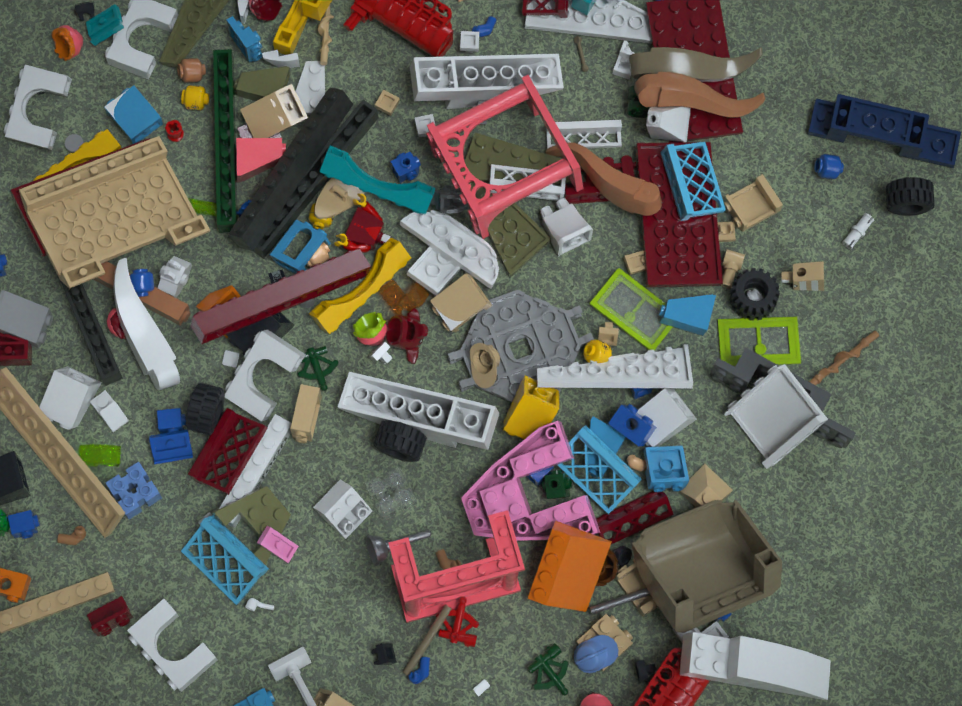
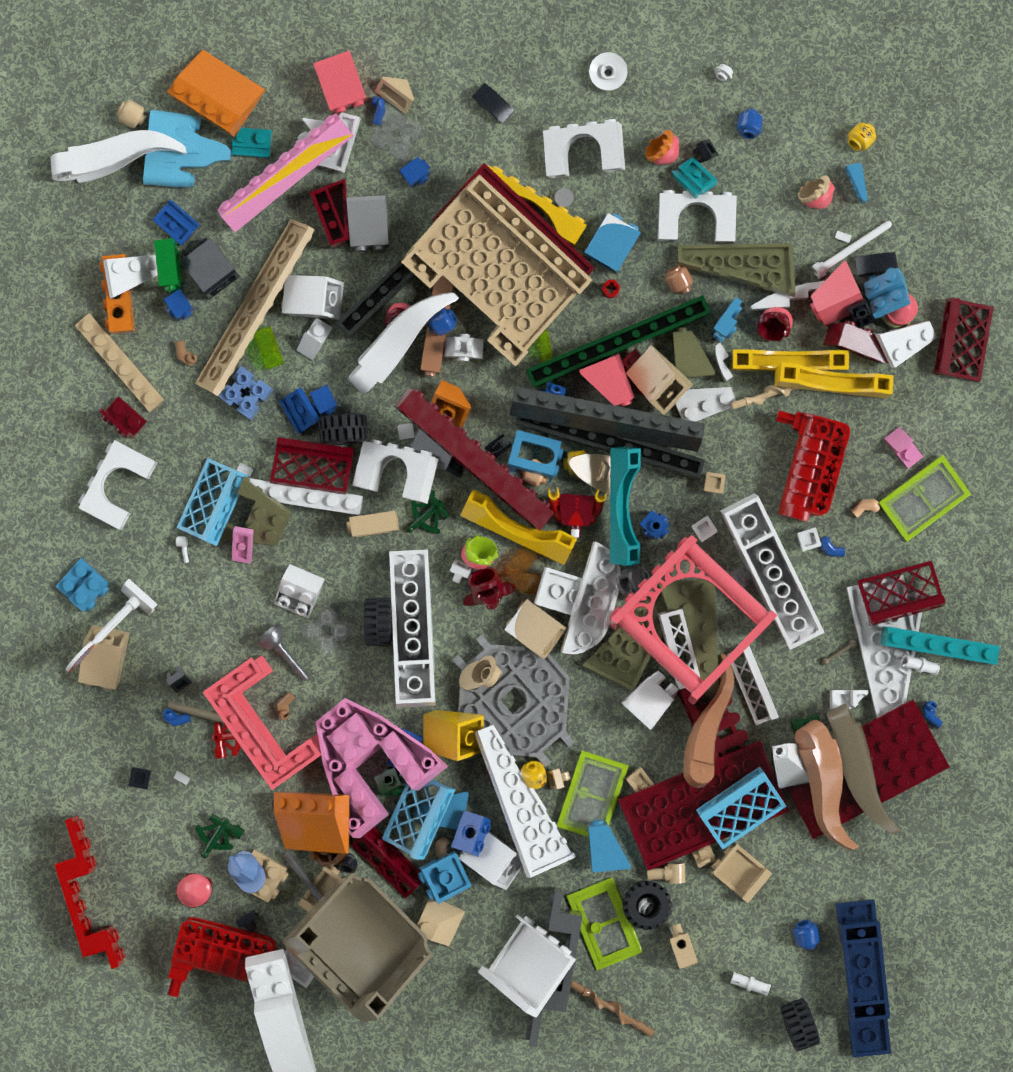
camera: 75 degrees right, 15 degrees up
(194, 97) = (652, 294): yellow head -> none

